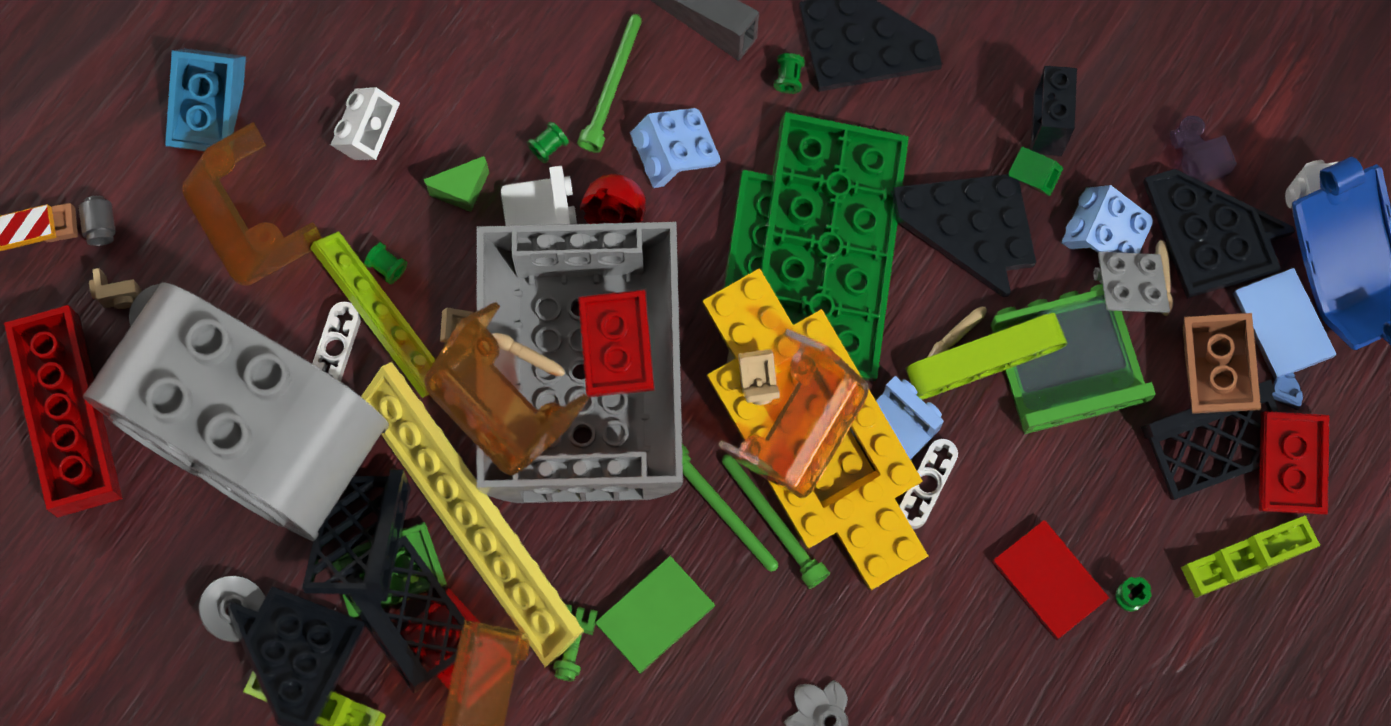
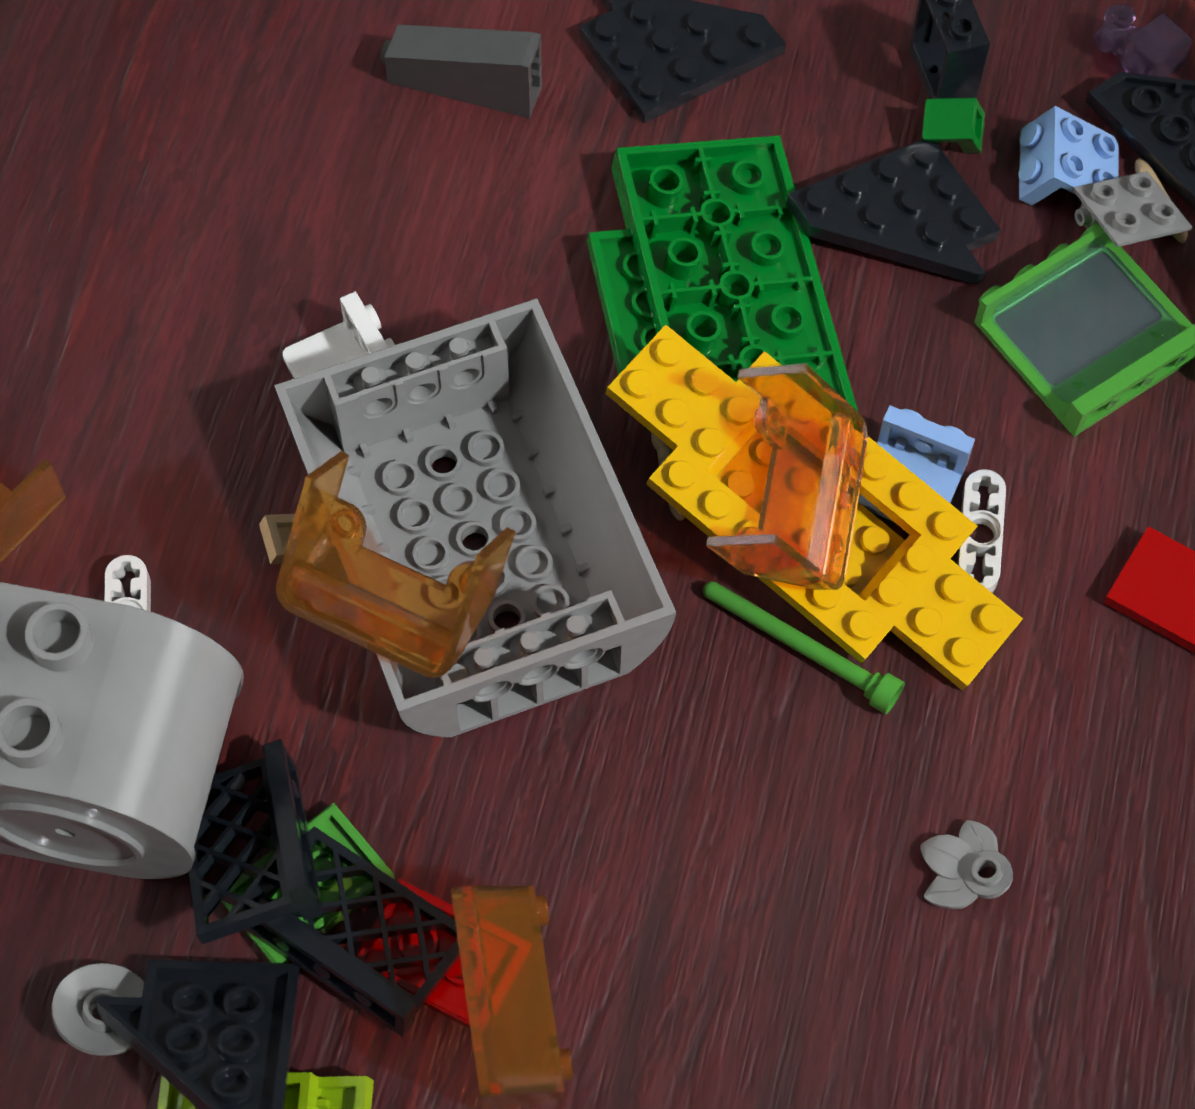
camera: 20 degrees left, 10 degrees down
(364, 123) = (71, 327): white brick -> none
(375, 308) = (174, 556): lime tile -> none
(385, 263) = (160, 491): green bush -> none
(460, 184) = (223, 365): bright green slope -> none
(472, 517) = (407, 774): light yellow plate -> none
(507, 344) = (409, 518): tan piece -> none
(547, 142) = (322, 279): green bush -> none
(567, 668) = (603, 927): bright green hinge -> none
(592, 136) = (378, 257): bright green piece -> none
(613, 200) = (435, 307): red cylinder -> none
(616, 343) = (517, 470): red tile -> none
(655, 614) = (694, 818): bright green tile -> none
(673, 144) = (483, 231): light blue bracket -> none
(727, 513) = (751, 663): bright green piece -> none
(758, 376) = (719, 452): tan bracket -> none
(789, 73) = (601, 109): green bush -> none
(959, 331) = (926, 365): tan piece -> none
(986, 356) = (991, 351): lime beam -> none

